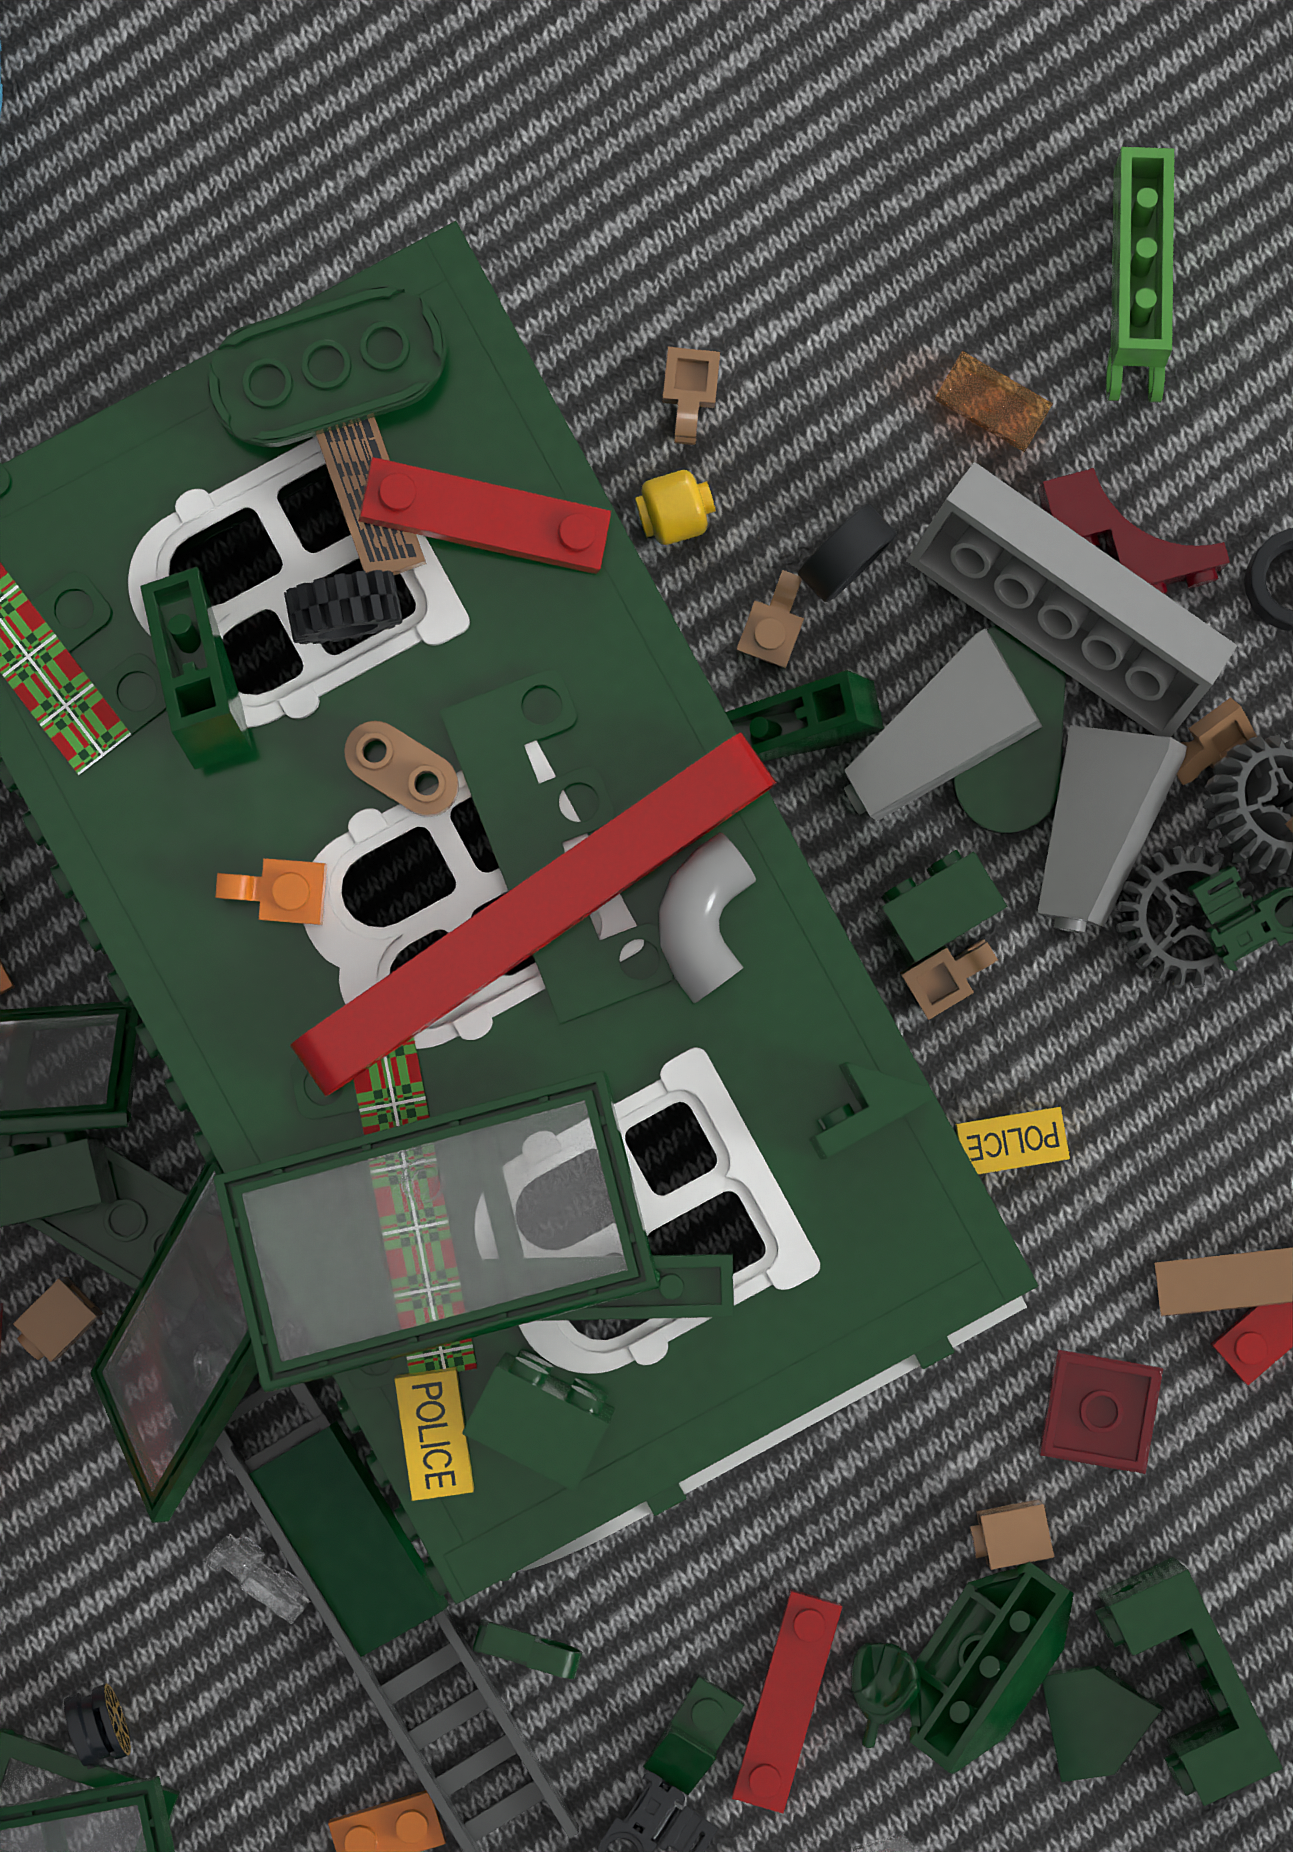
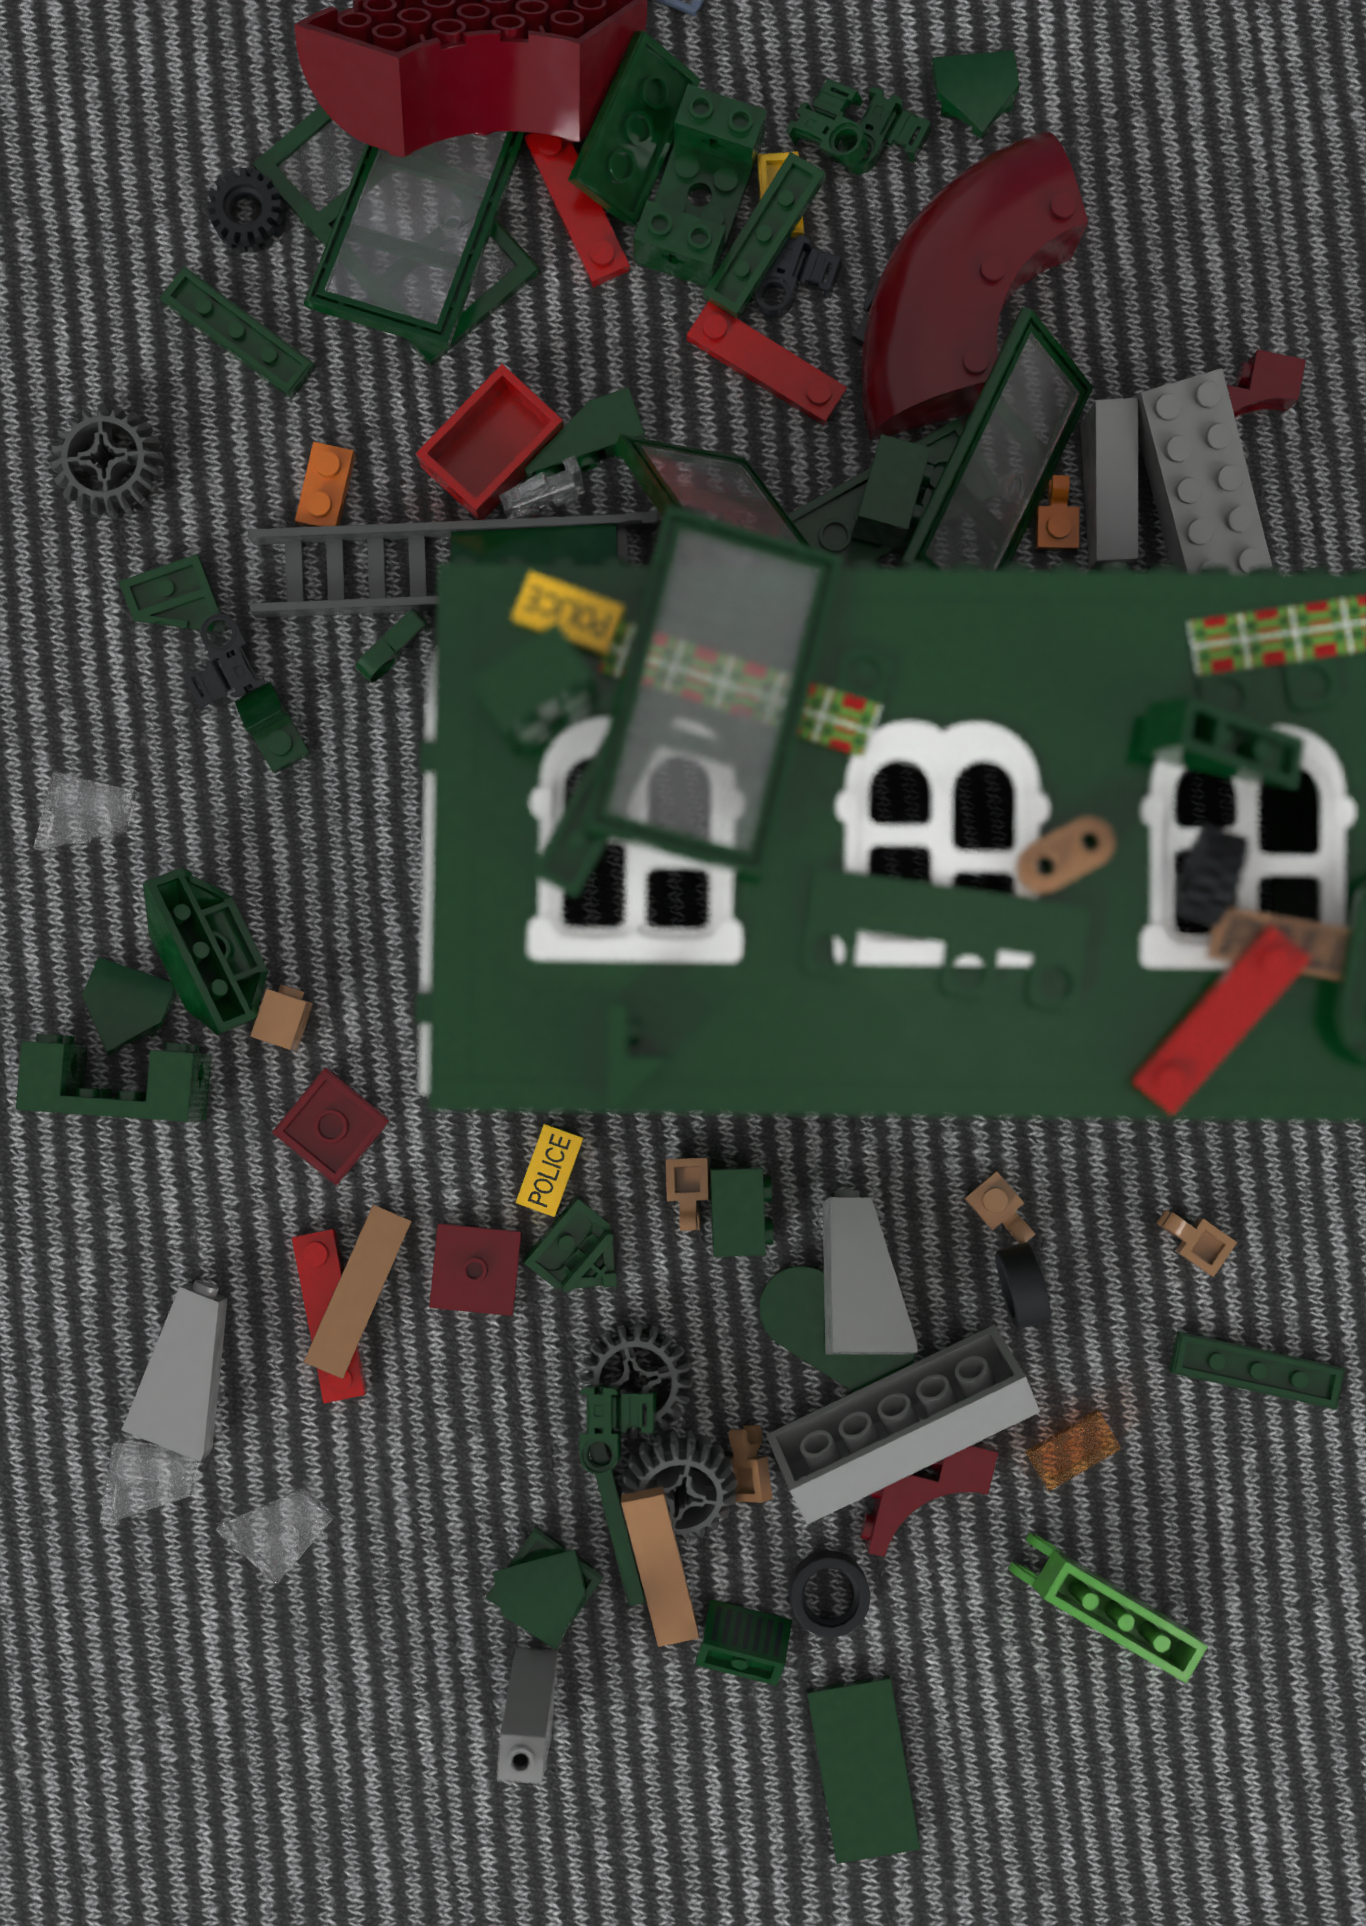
camera: 115 degrees right, 0 degrees up
(56, 1320) = (792, 453): medium nougat brick -> none
(97, 1726) = (504, 331): black wheel -> none
(164, 1559) = (590, 435): none -> dark green slope
(235, 1667) = (489, 442): none -> red piece
(285, 891) = (1022, 721): orange plate -> none
(533, 914) = (905, 892): red beam -> none
(674, 507) = (1120, 1183): yellow head -> none
(692, 915) = (840, 1006): light grey cylinder -> none
(786, 1701) = (259, 802): red plate -> none
(793, 250) = (1257, 1369): none -> dark green tile
(810, 716) = (923, 1186): dark green slope -> none
(882, 1685) = (232, 872): dark green piece -> none
(1084, 1063) = (575, 1250): none -> dark green slope
(1101, 820) = (737, 1359): light grey slope -> none
(1166, 1162) = (475, 1269): none -> dark red plate

